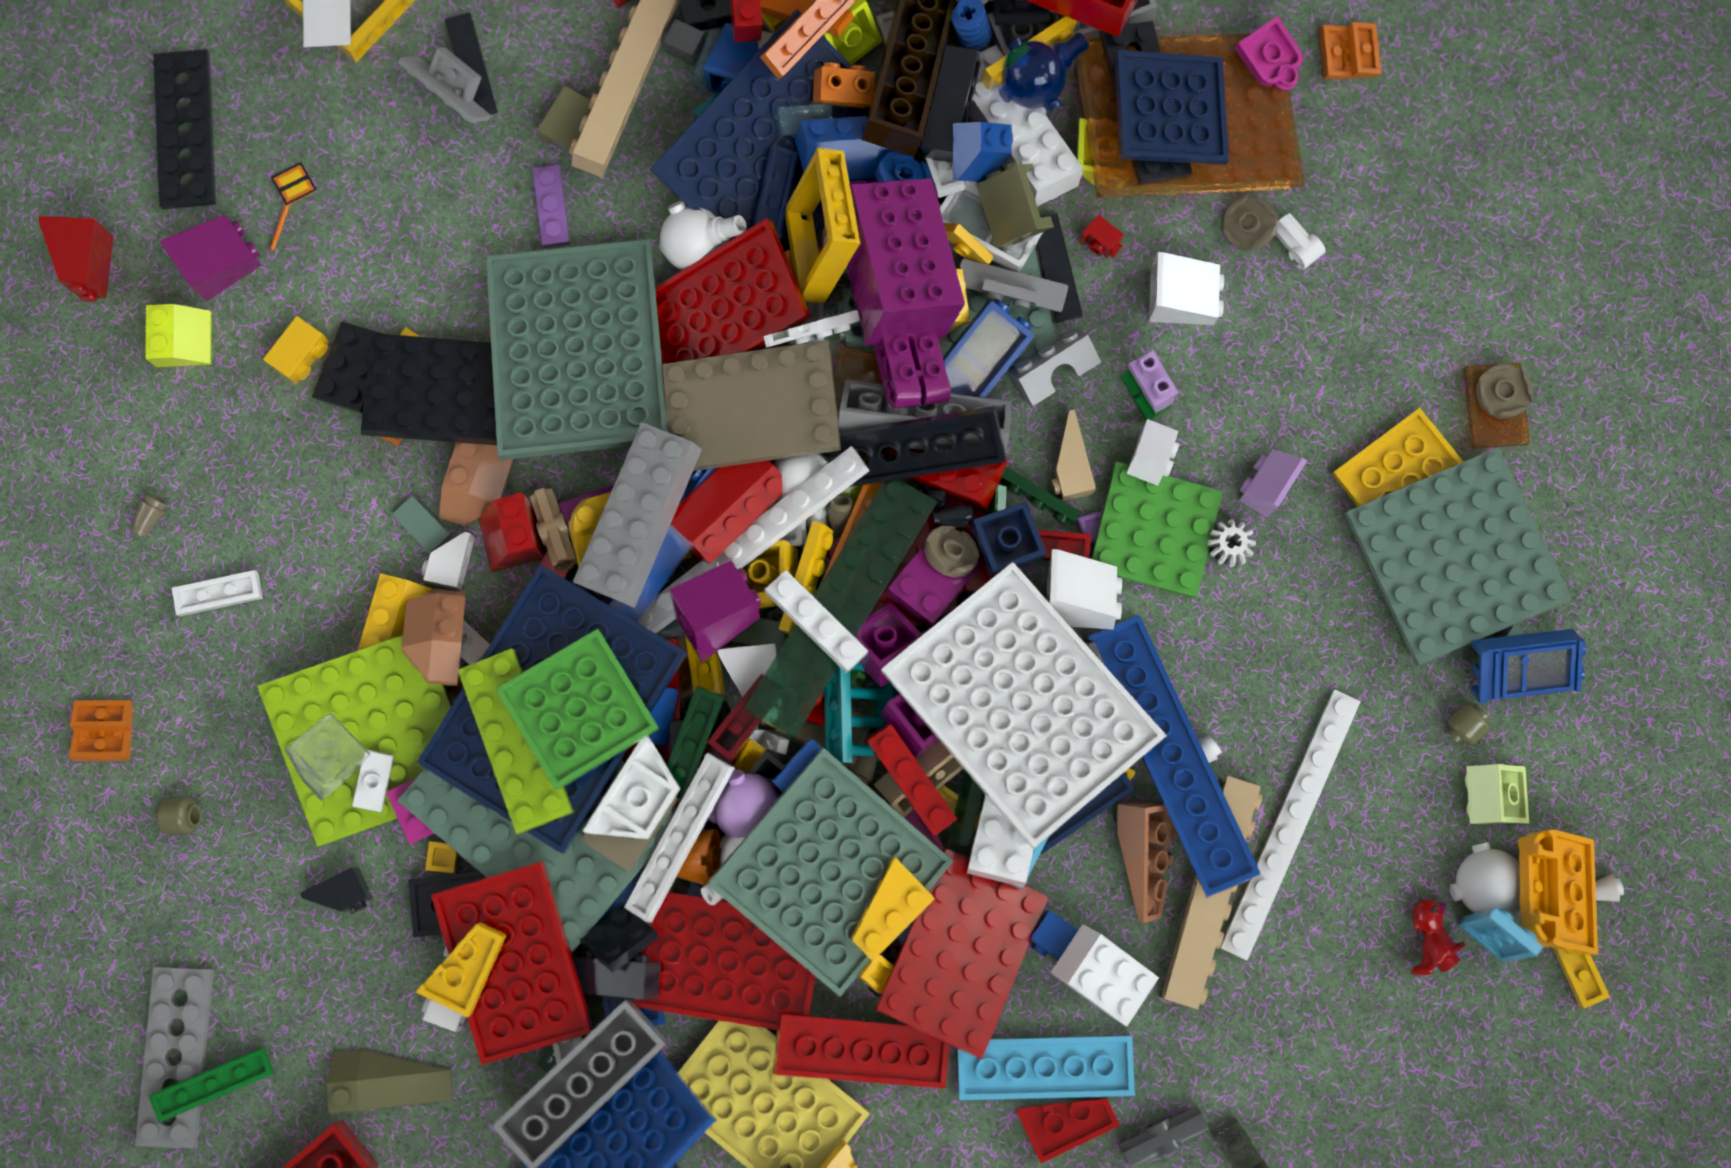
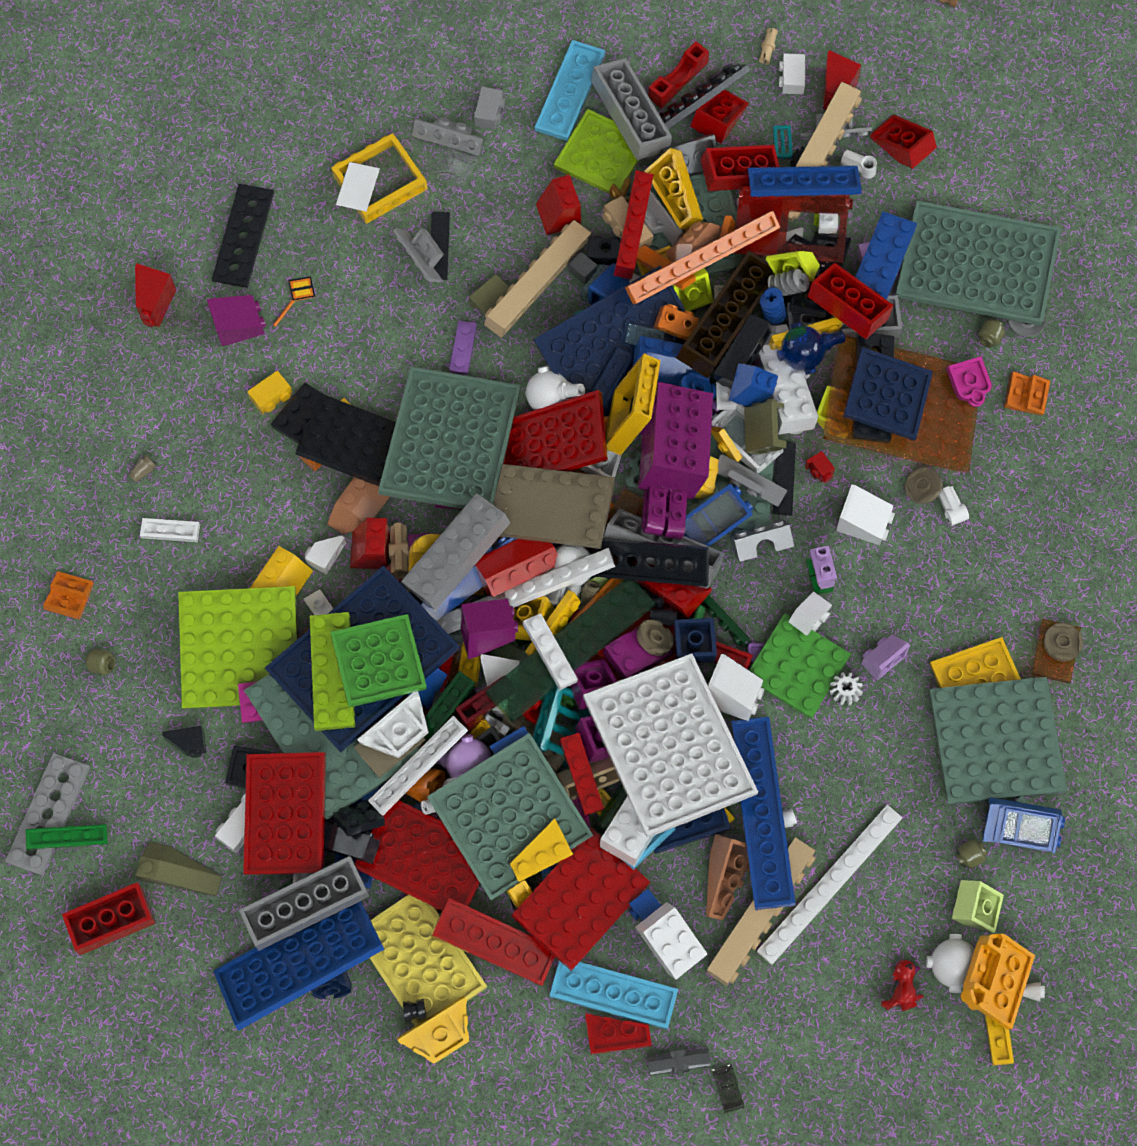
camera: 20 degrees right, 10 degrees down
(177, 335) = (197, 362): neon yellow slope -> none
(326, 756) = (208, 648): clear slope -> none
(373, 781) = (232, 674): white plate -> none
(421, 525) = (314, 524): sand green tile -> none
(435, 634) = (301, 593): nougat wedge -> none
(441, 858) = (260, 738): yellow plate -> none
(465, 971) = (252, 809): yellow wing -> none
(818, 328) = (611, 468): white wing -> none
(1072, 470) = (753, 610): tan slope -> none
(1501, 935) = (947, 993): medium azure plate -> none

